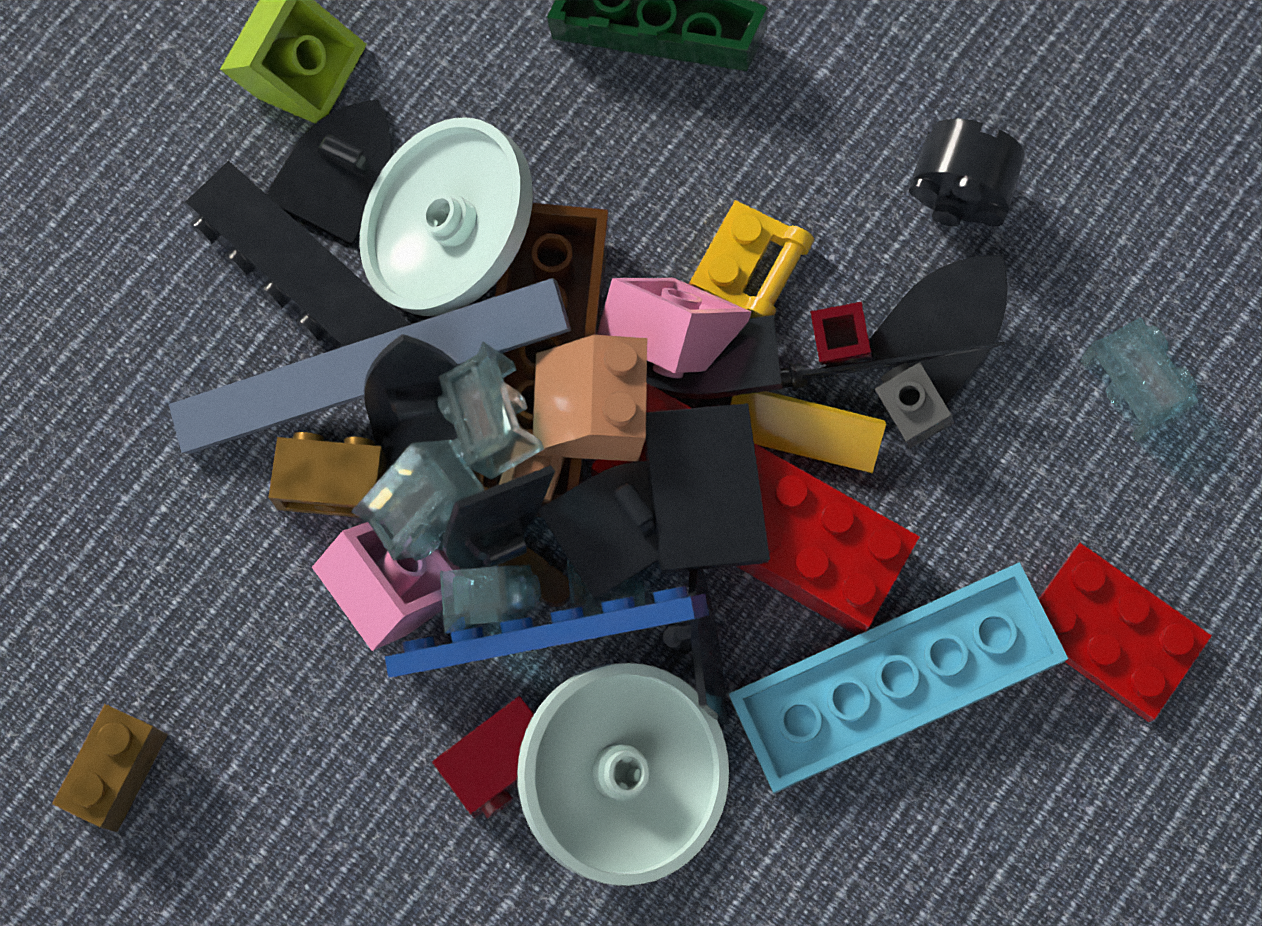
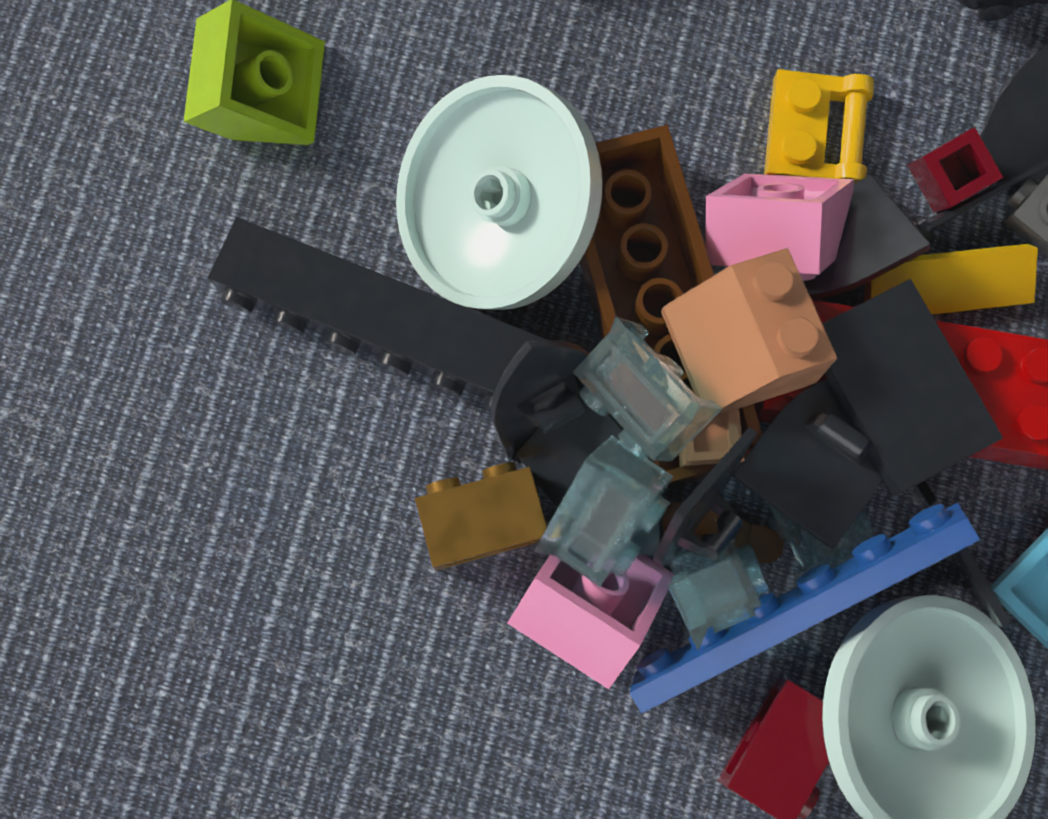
camera: 20 degrees left, 5 degrees up
(335, 169) = (349, 185): black shield -> none
(340, 374) = (464, 398): sand blue tile -> none

